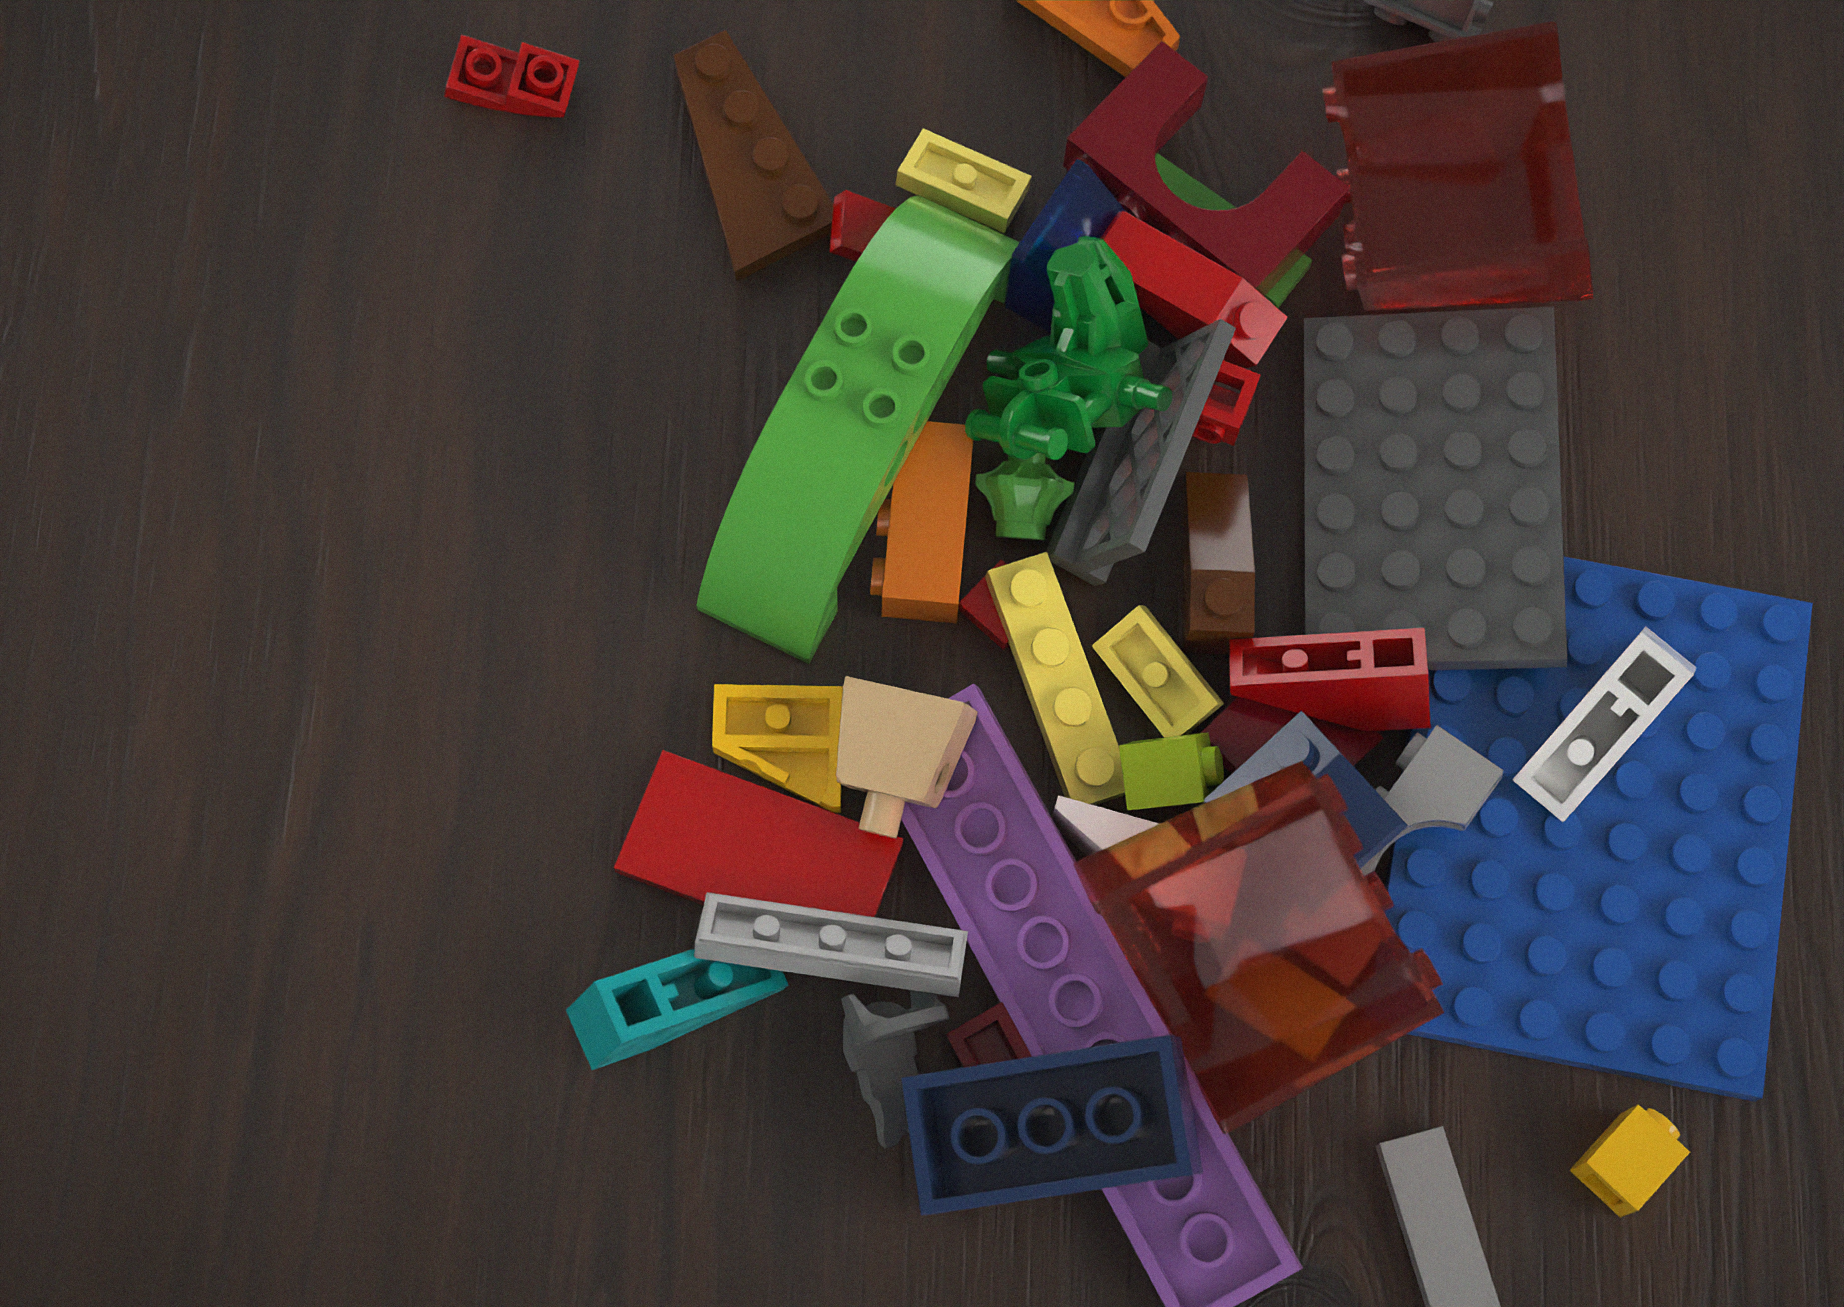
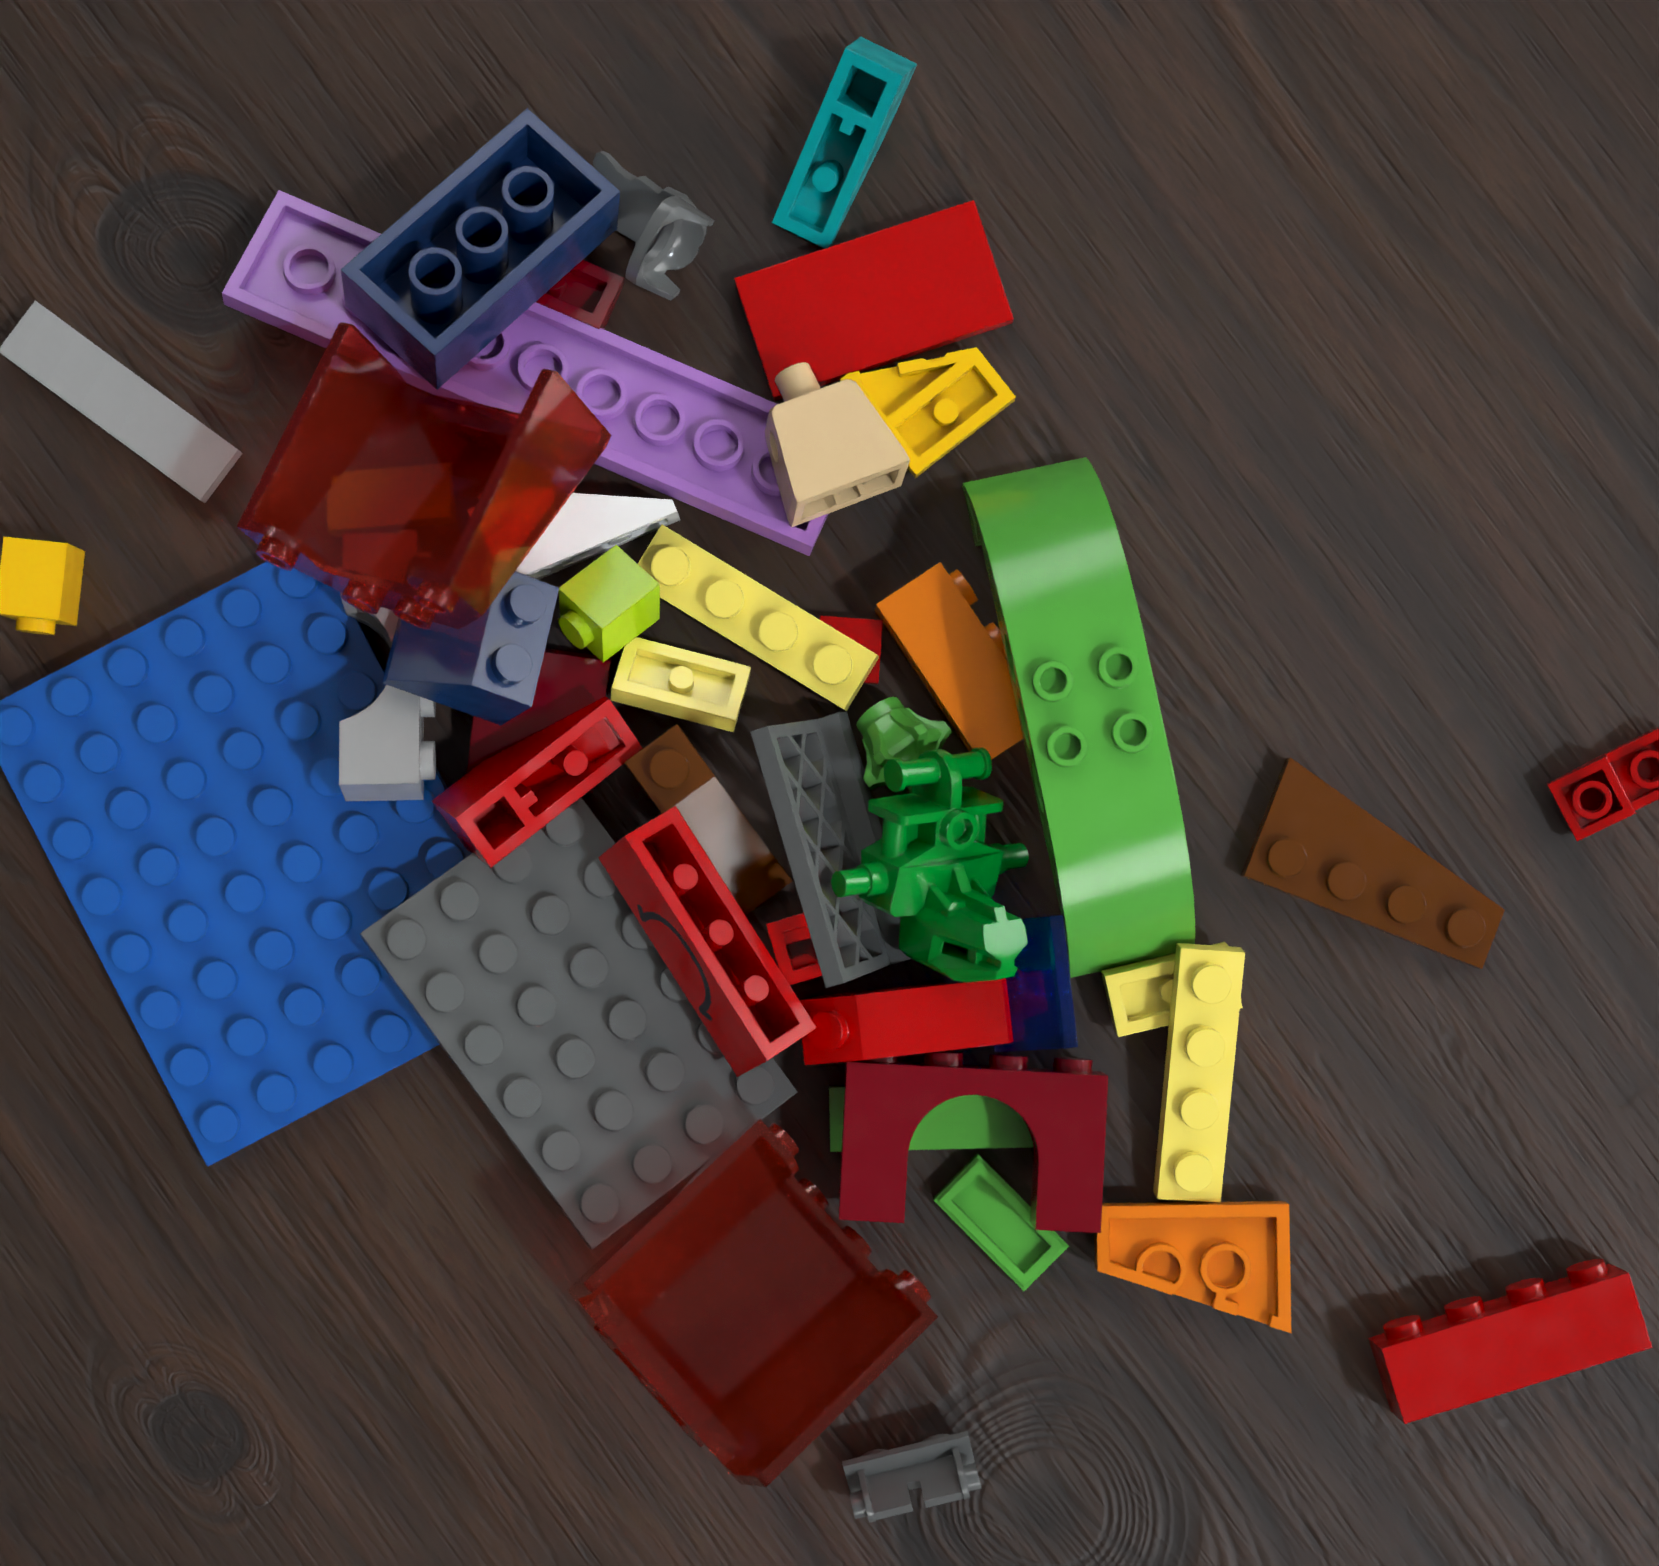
camera: 140 degrees right, 15 degrees up
(831, 944) = (758, 263): light grey tile -> none
(855, 223) = (1221, 877): red tile -> none
(991, 109) = (1198, 1072): none -> light yellow plate
(1225, 131) = (999, 1222): none -> bright green tile
(1295, 451) = (706, 941): none -> red brick
(1605, 724) = (293, 915): white slope -> none

